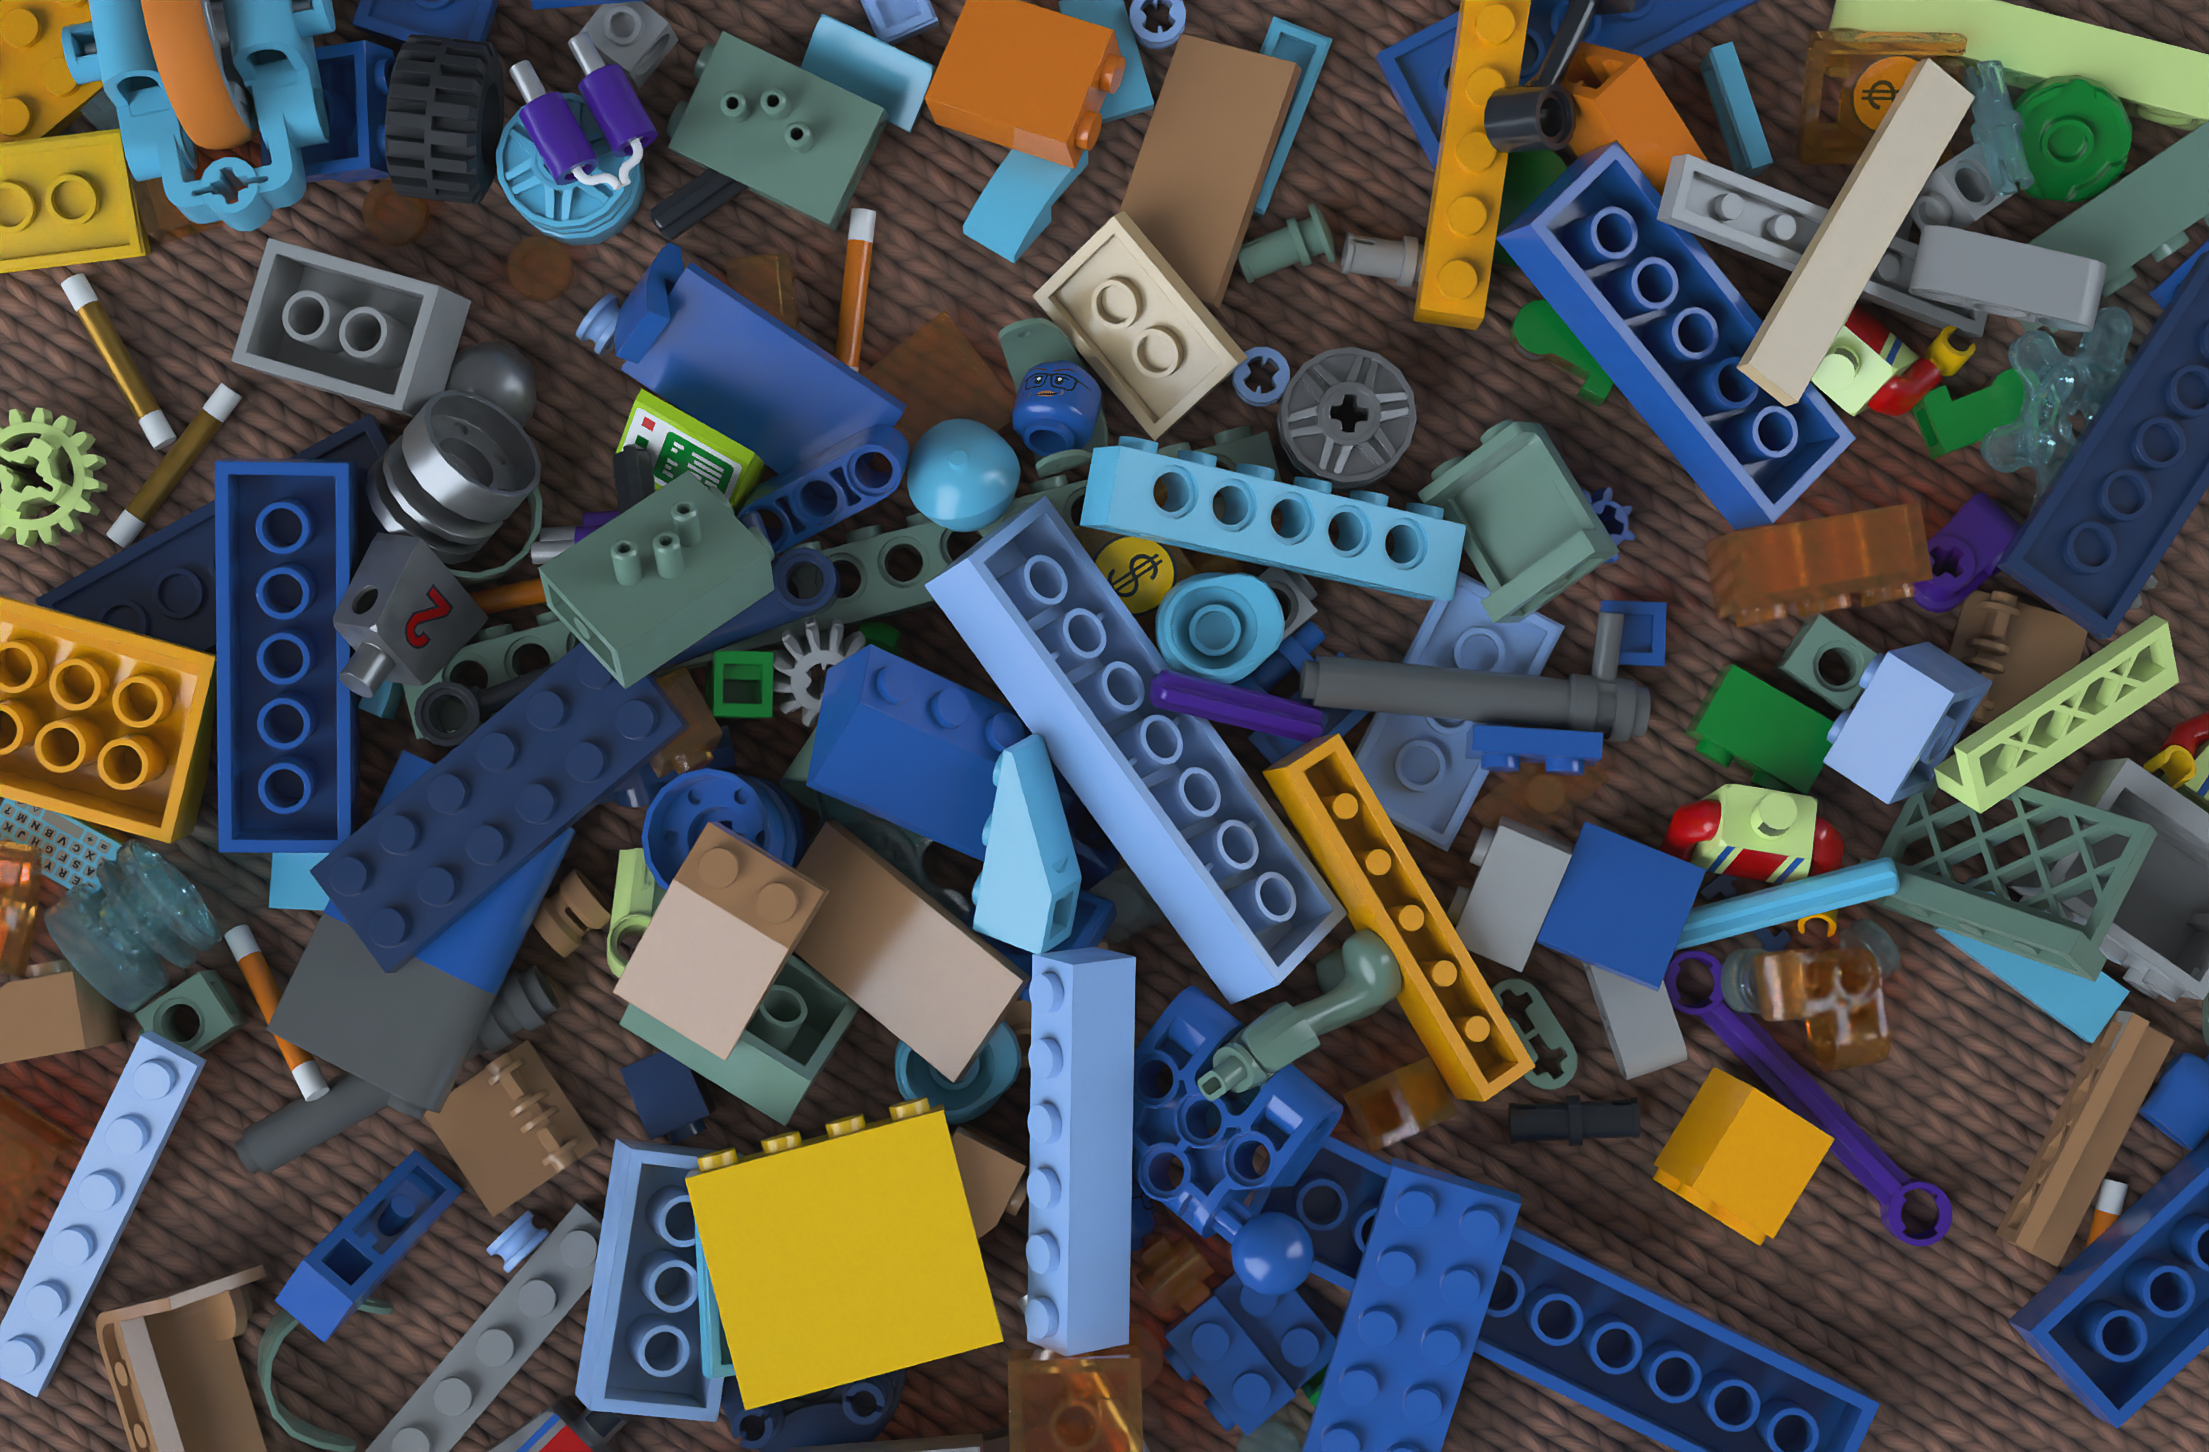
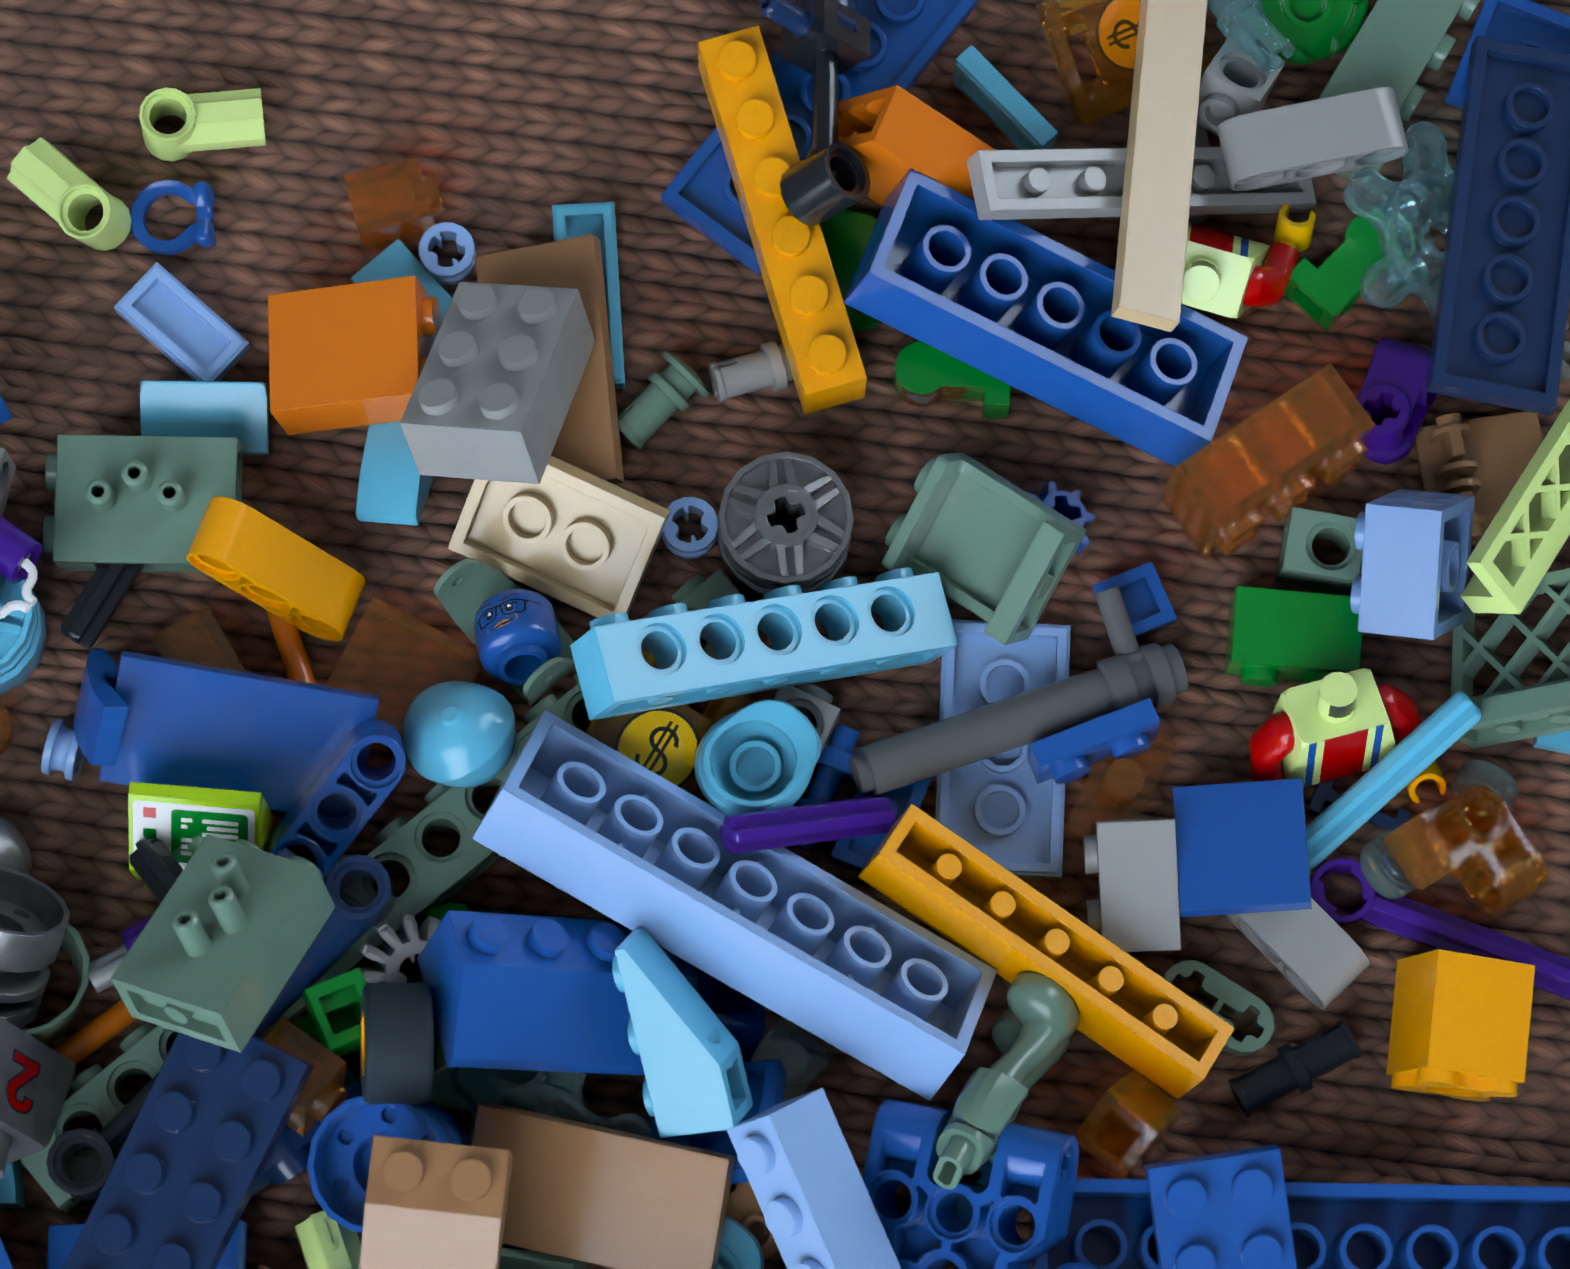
camera: 30 degrees left, 10 degrees down
(772, 740) = (396, 1043): none -> black wheel
(865, 246) = (276, 568): none -> light orange beam
(1143, 167) = (498, 382): none -> light grey brick

